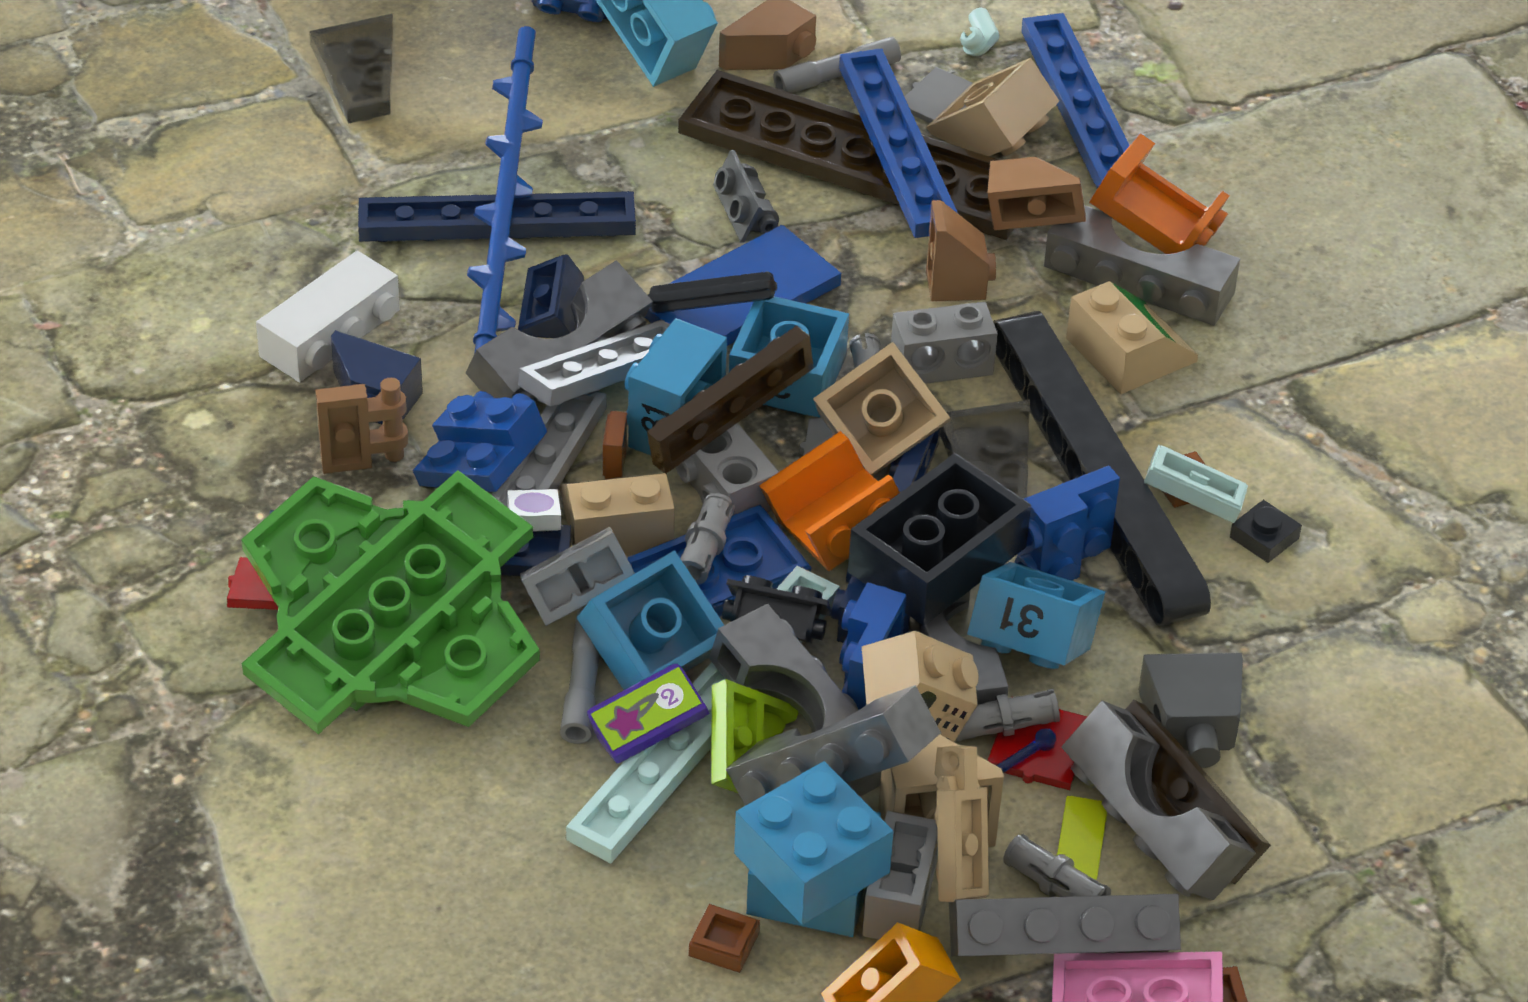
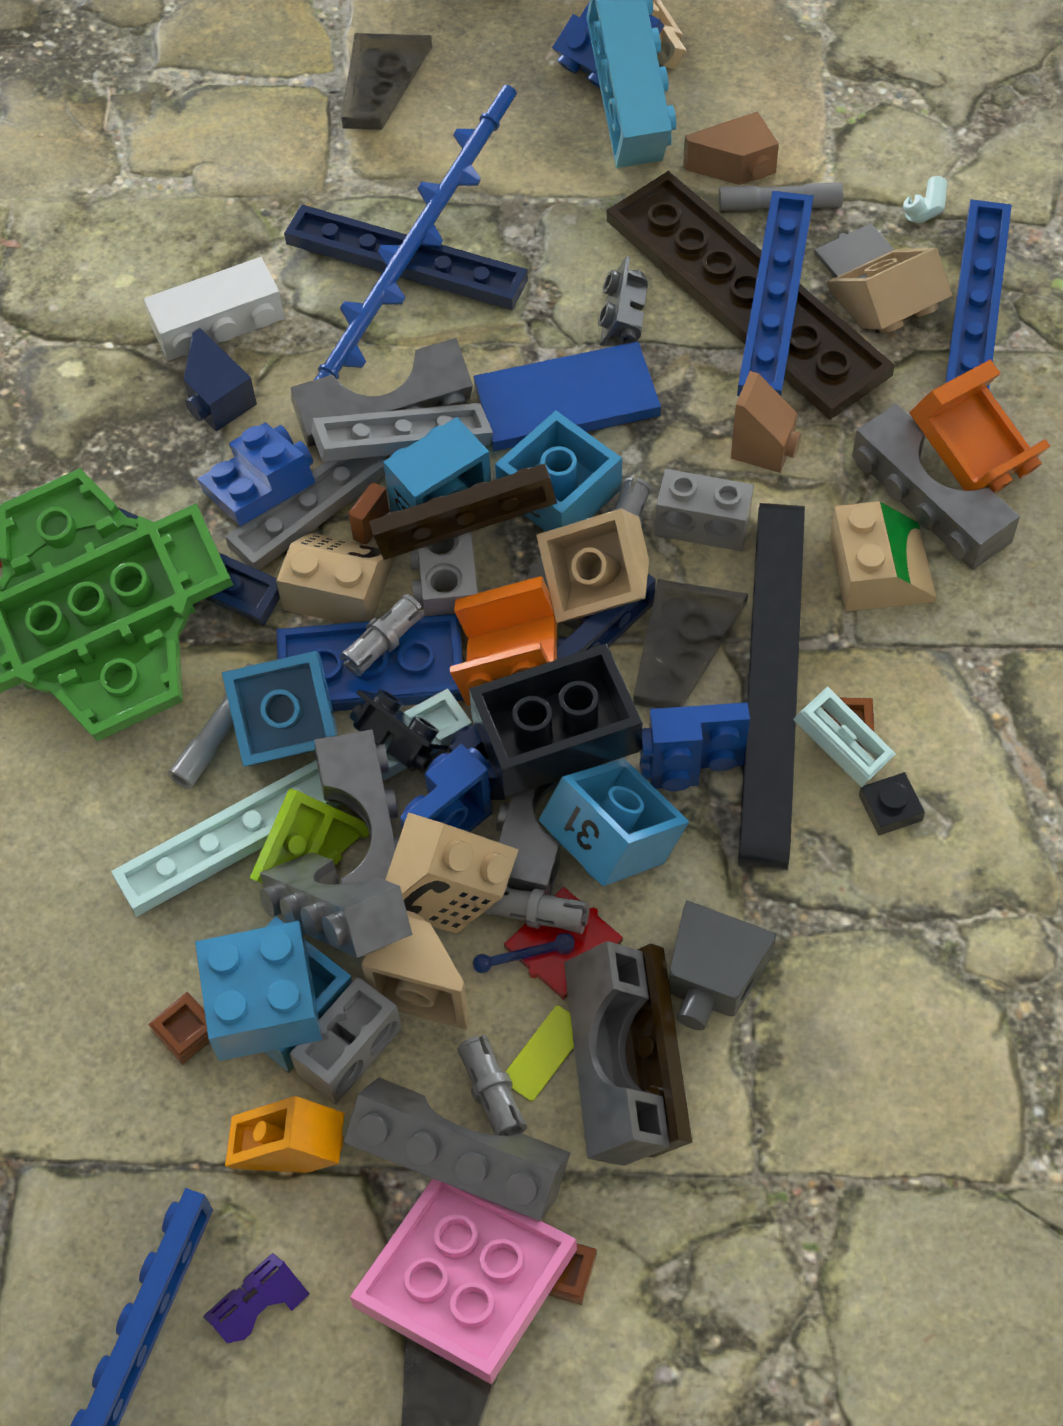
camera: 30 degrees right, 15 degrees up
(345, 430) = (157, 425): medium nougat plate -> none
(537, 507) = (256, 556): tile -> none
(548, 298) = (396, 356): dark blue slope -> none
(576, 575) = (250, 635): light grey brick -> none
(647, 713) = (230, 791): slope -> none
(712, 292) = (521, 396): black axle -> none
(961, 826) = (399, 1025): tan hinge -> none
(1033, 194) = (855, 388): medium nougat slope -> none

